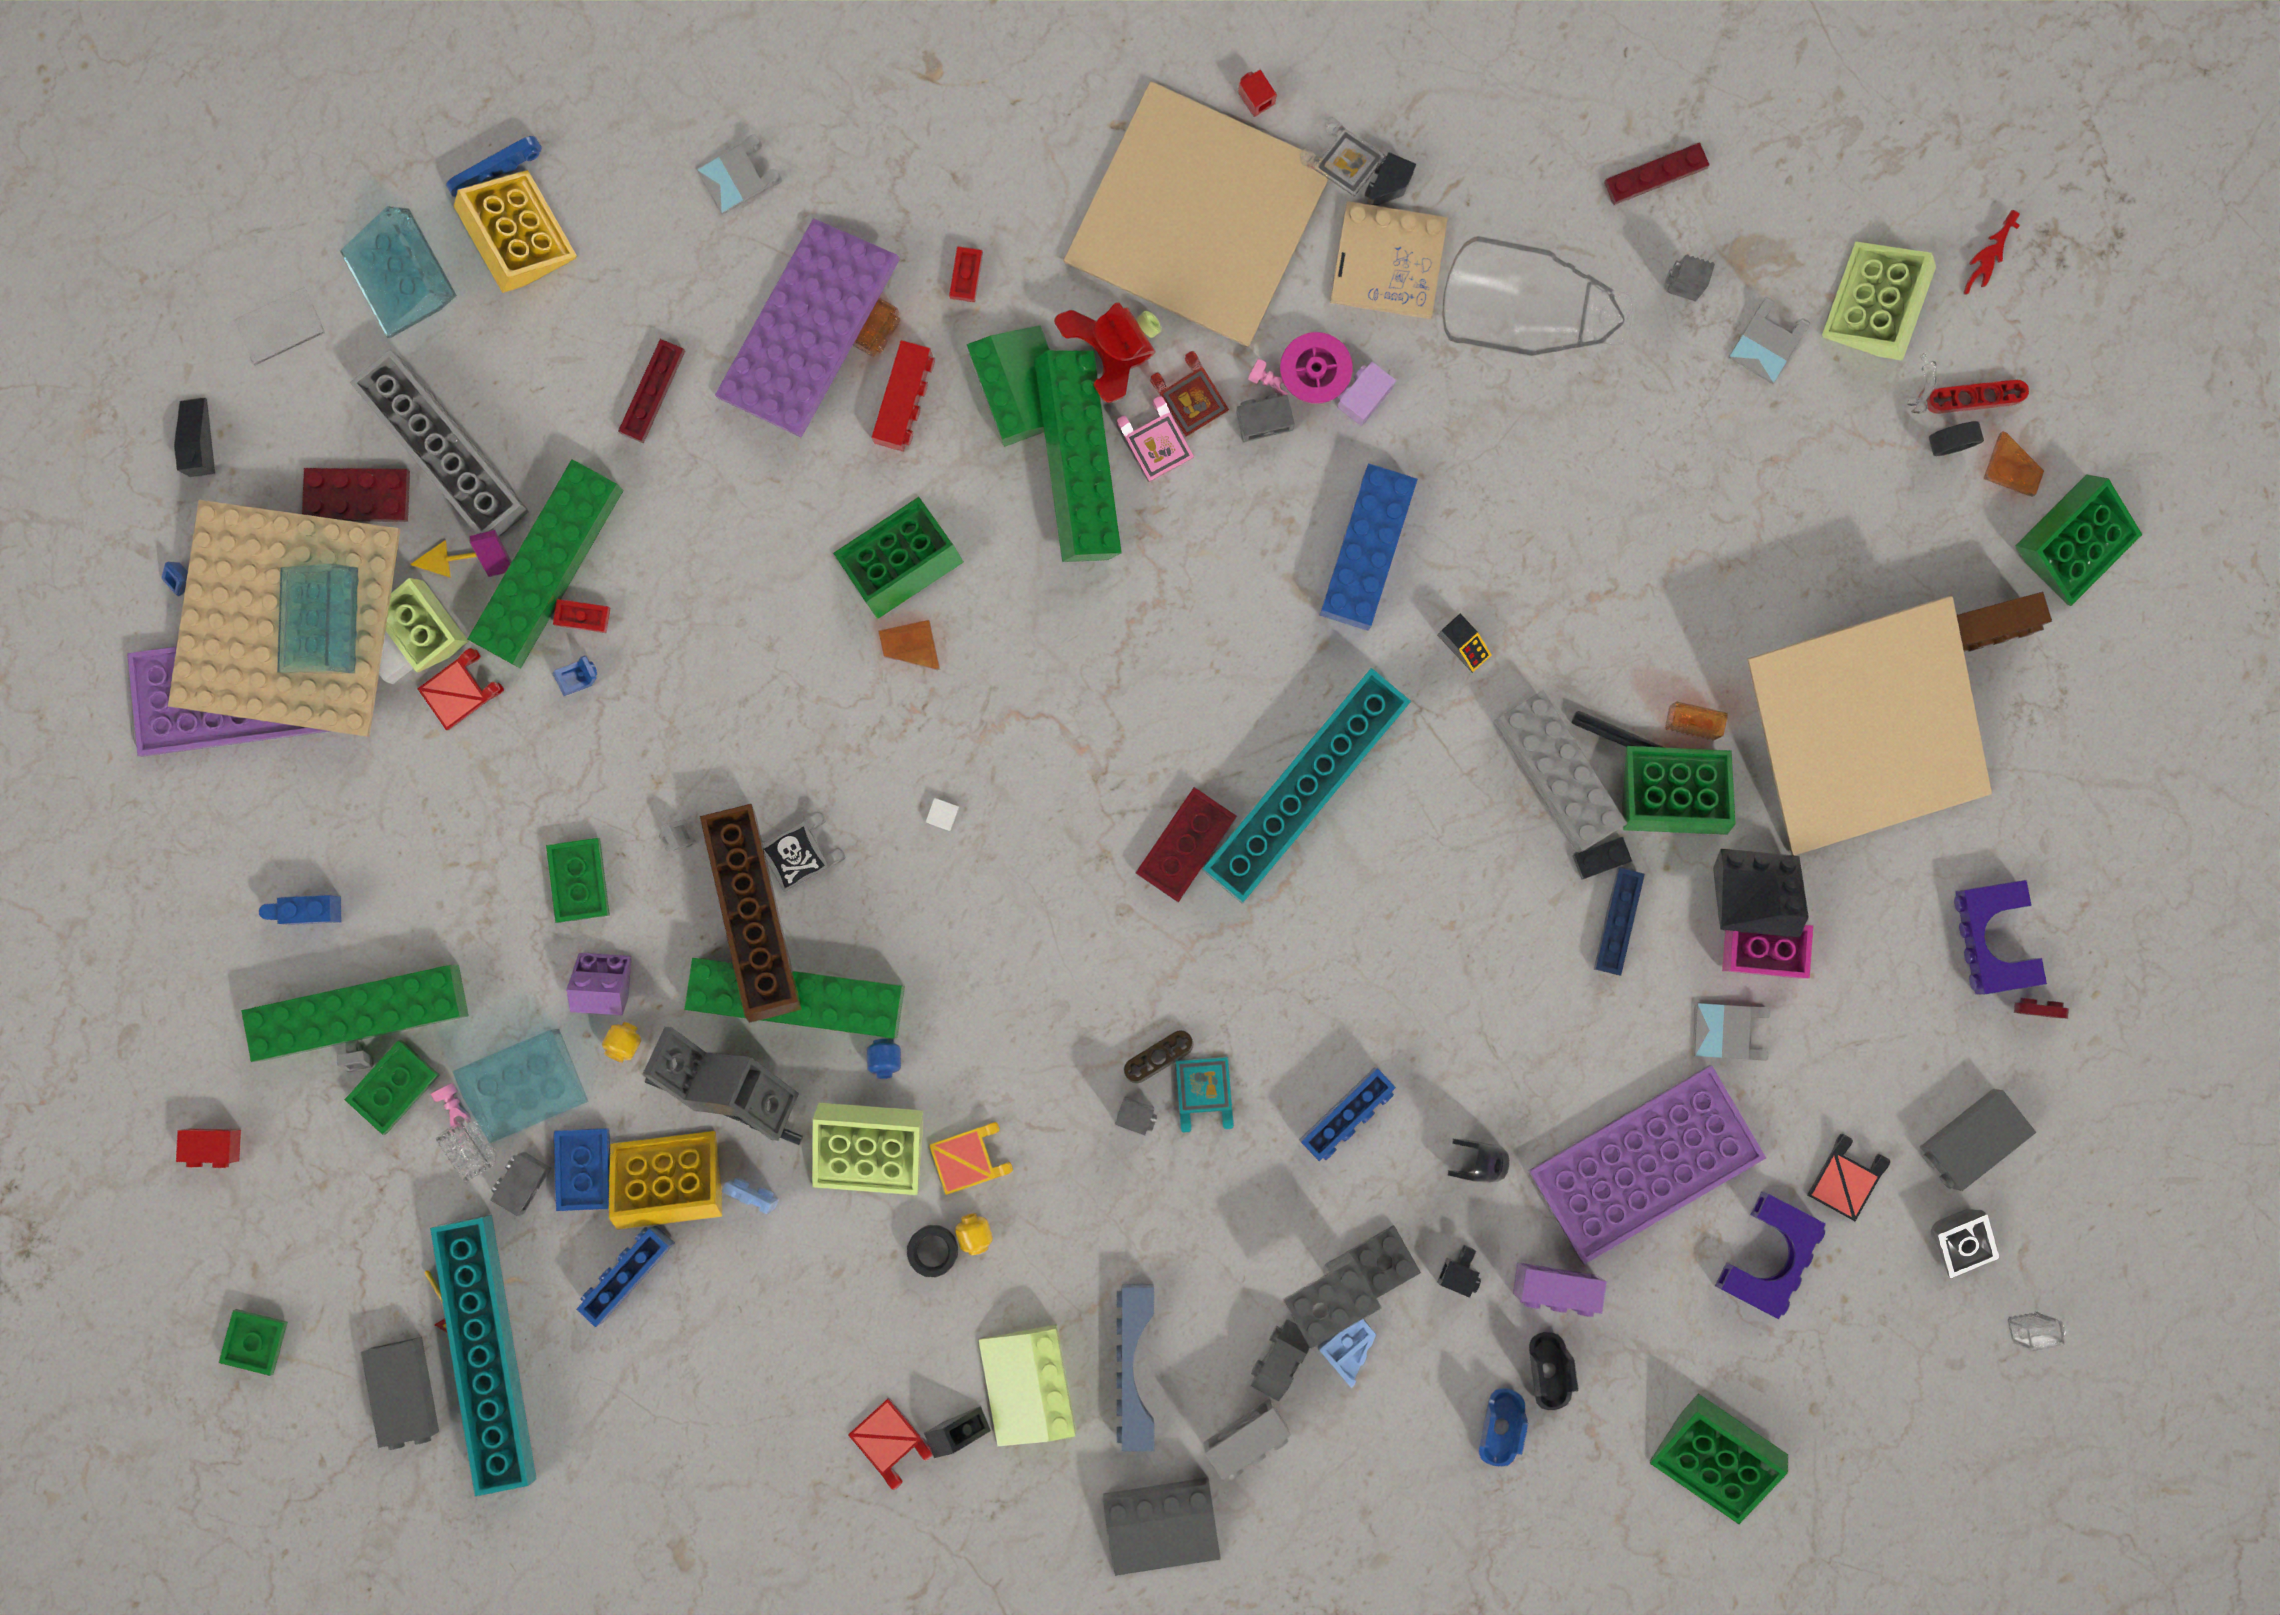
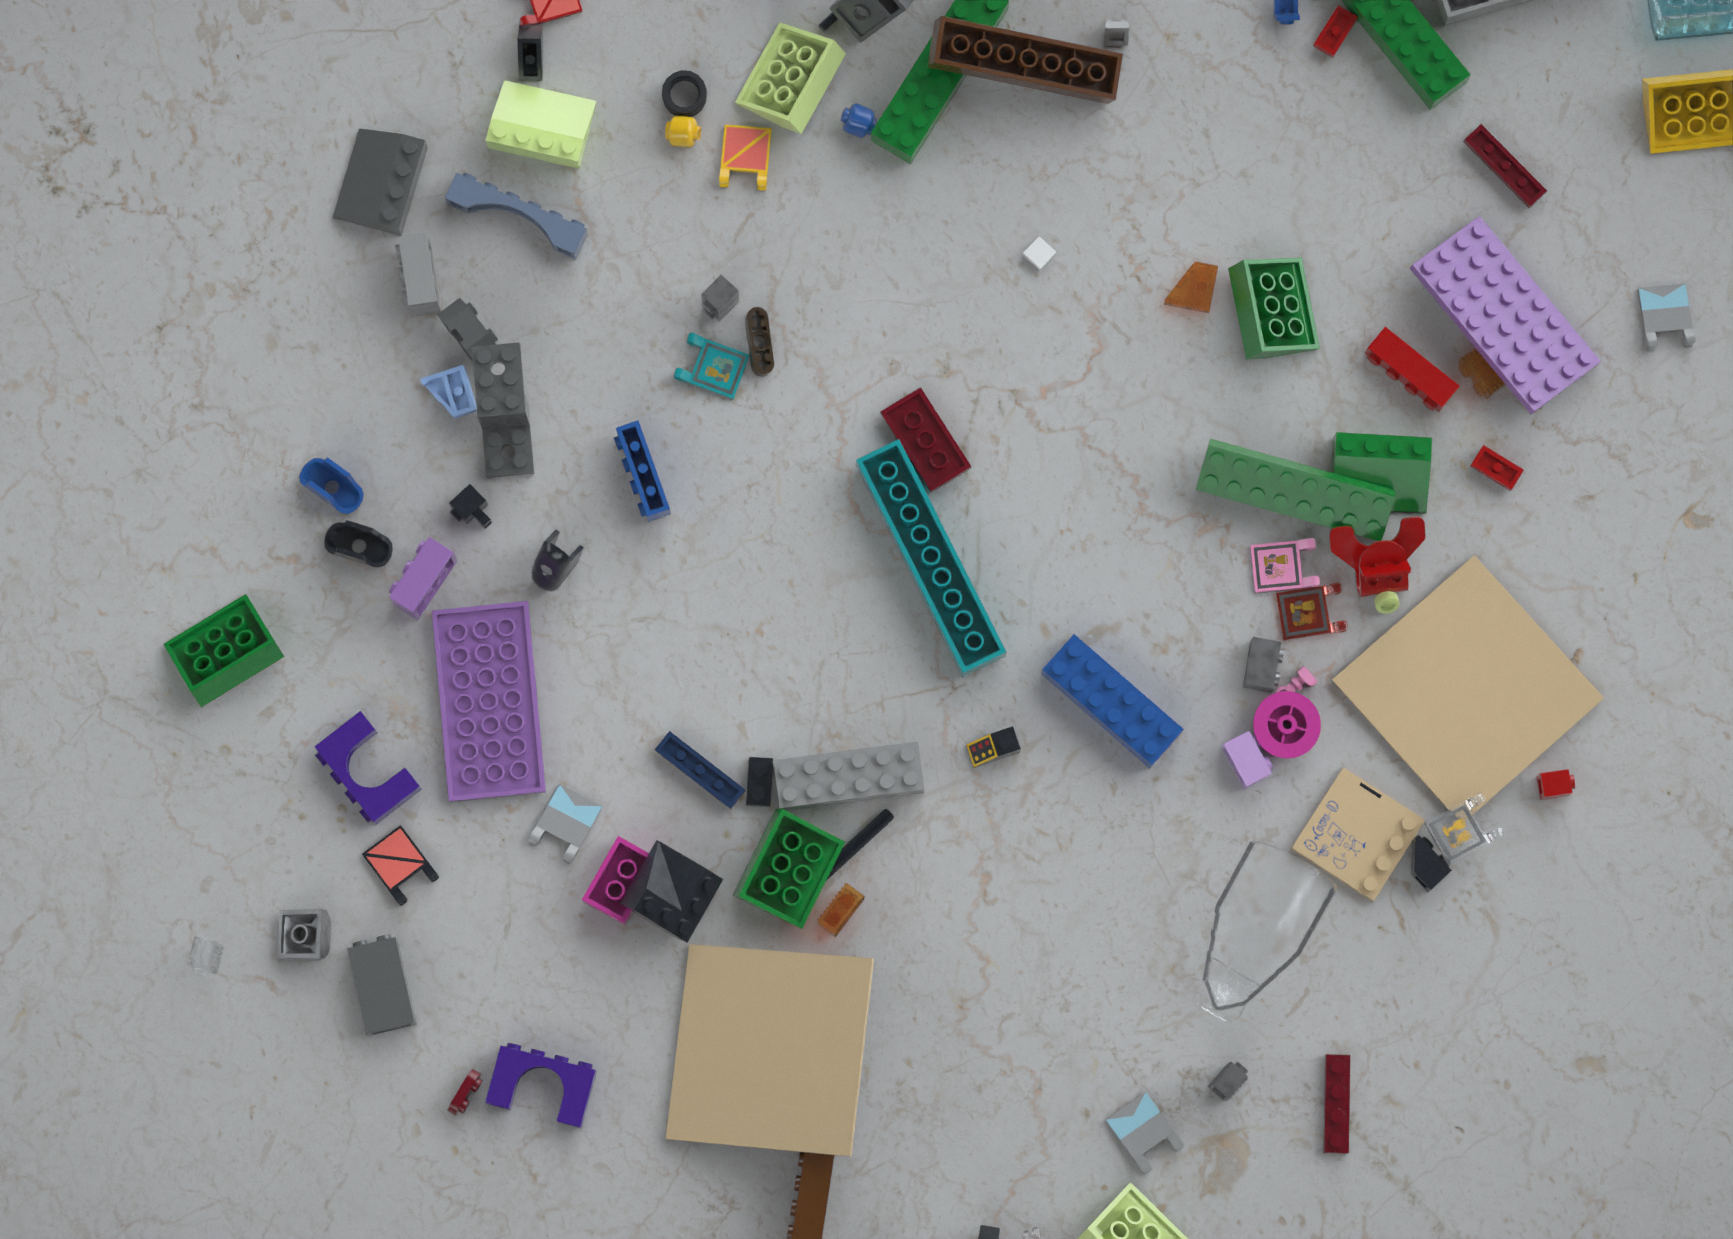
camera: 110 degrees right, 5 degrees down
(796, 855) = (1058, 122): flag -> none

